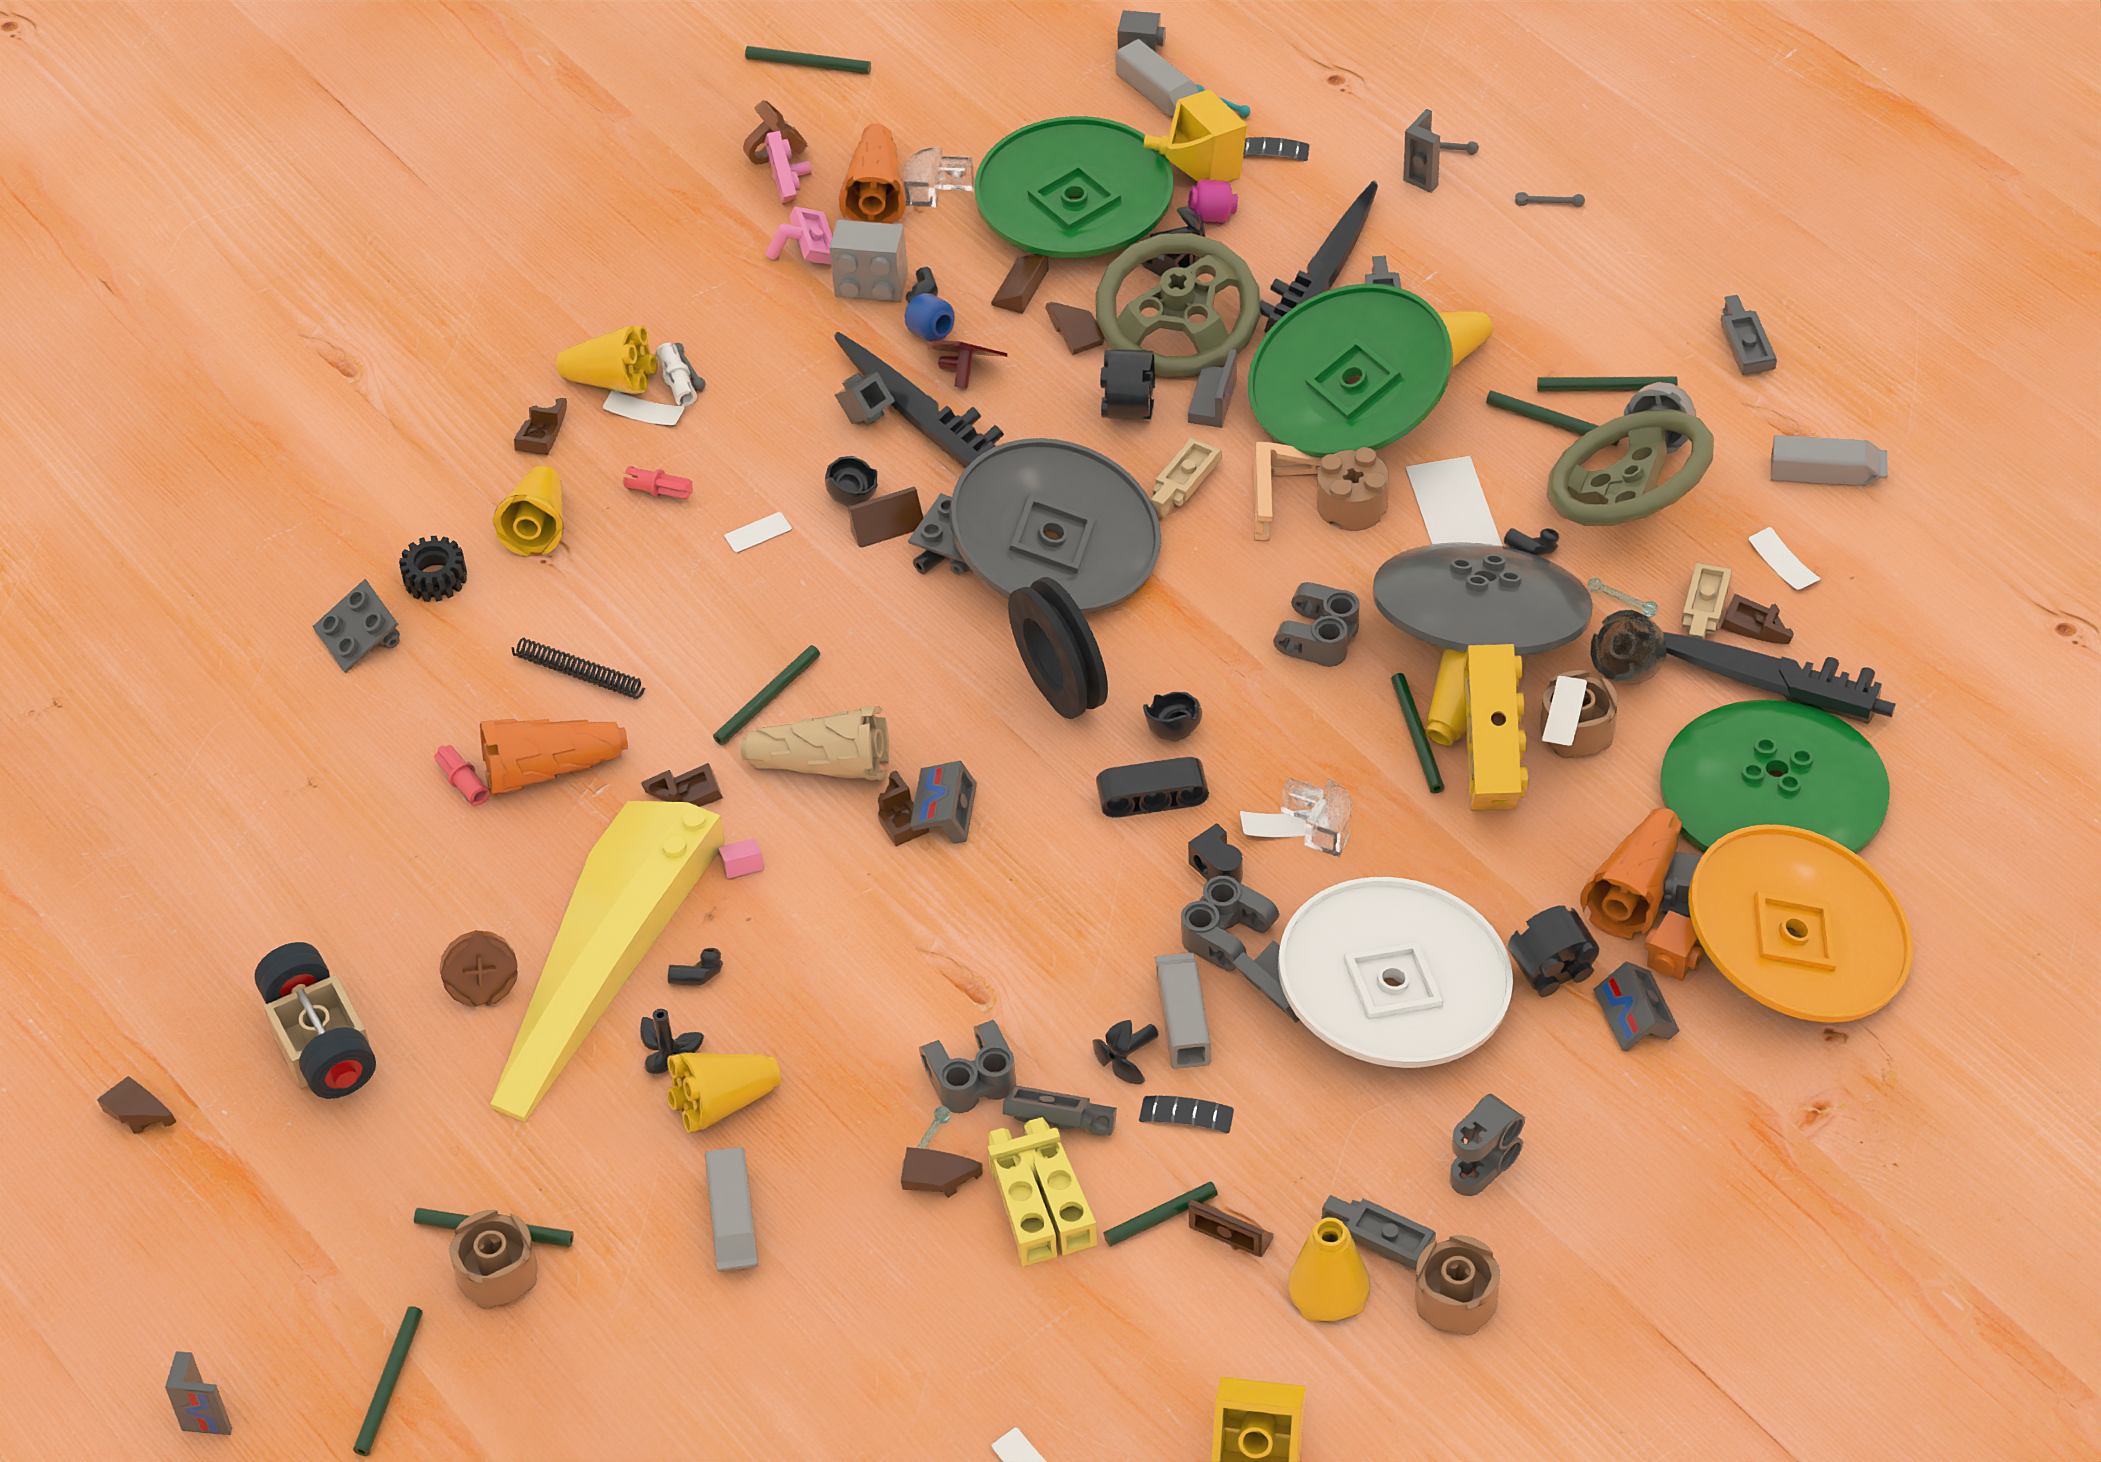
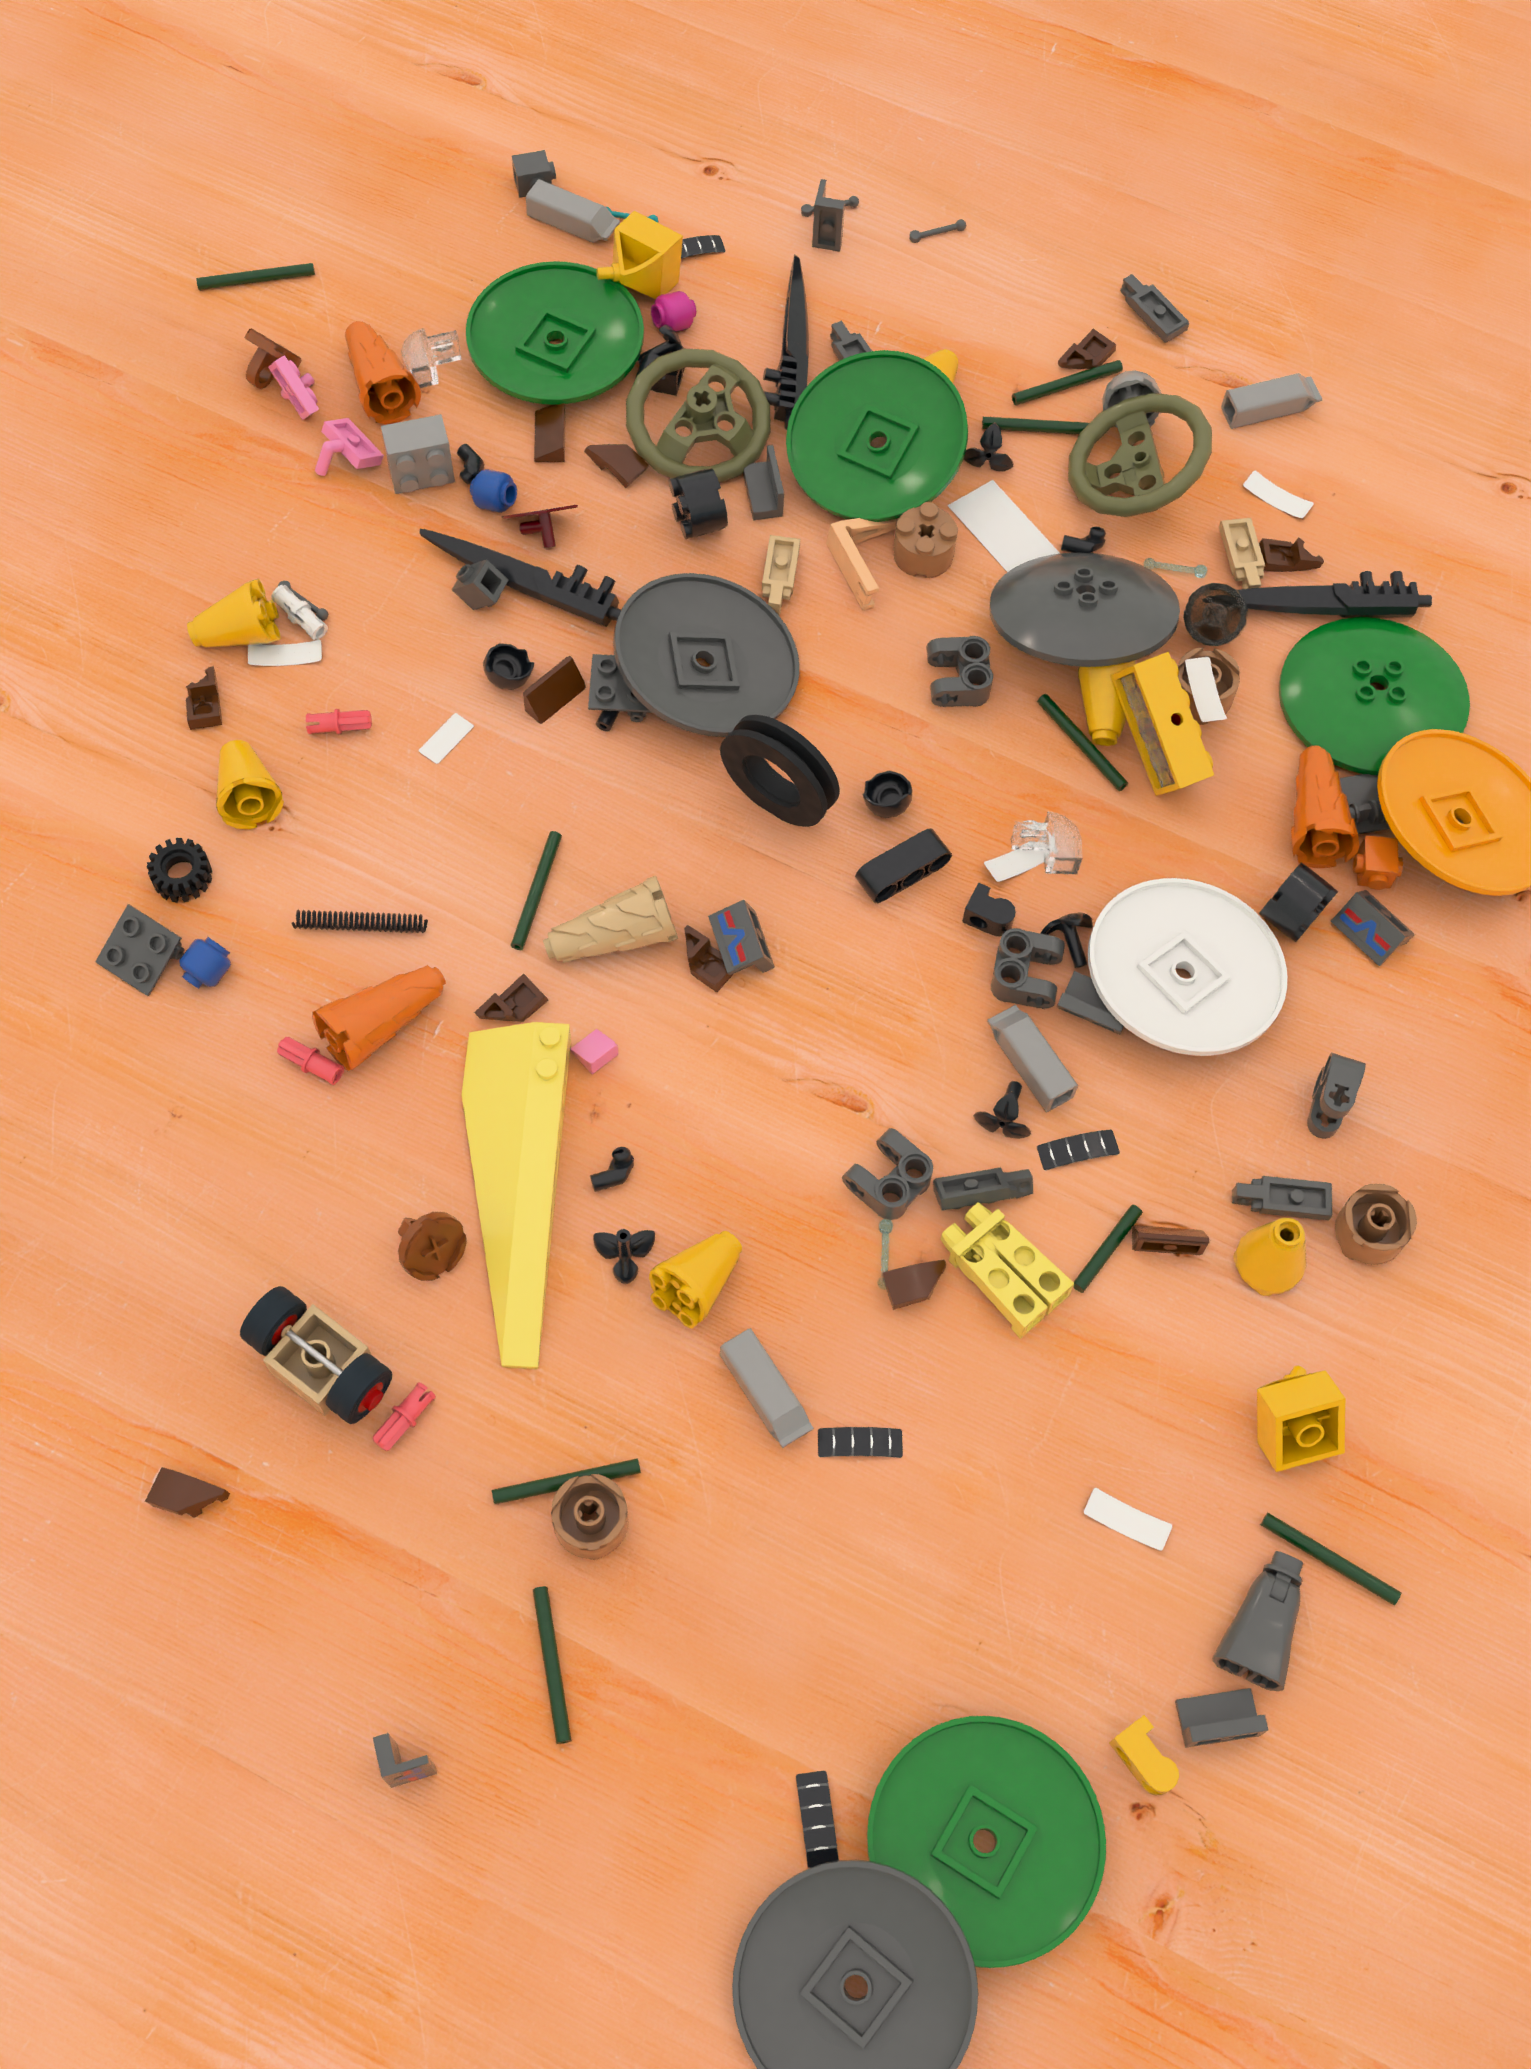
camera: 30 degrees left, 15 degrees up
(371, 1113) = (403, 1417): none -> coral axle
(410, 655) = (205, 963): none -> blue head
(803, 1299) = (860, 1442): none -> black sticker
(1293, 894) = (1067, 925): none -> black plant
(1478, 415) = (991, 442): none -> black plant
(1652, 360) = (1089, 352): none -> reddish brown slope

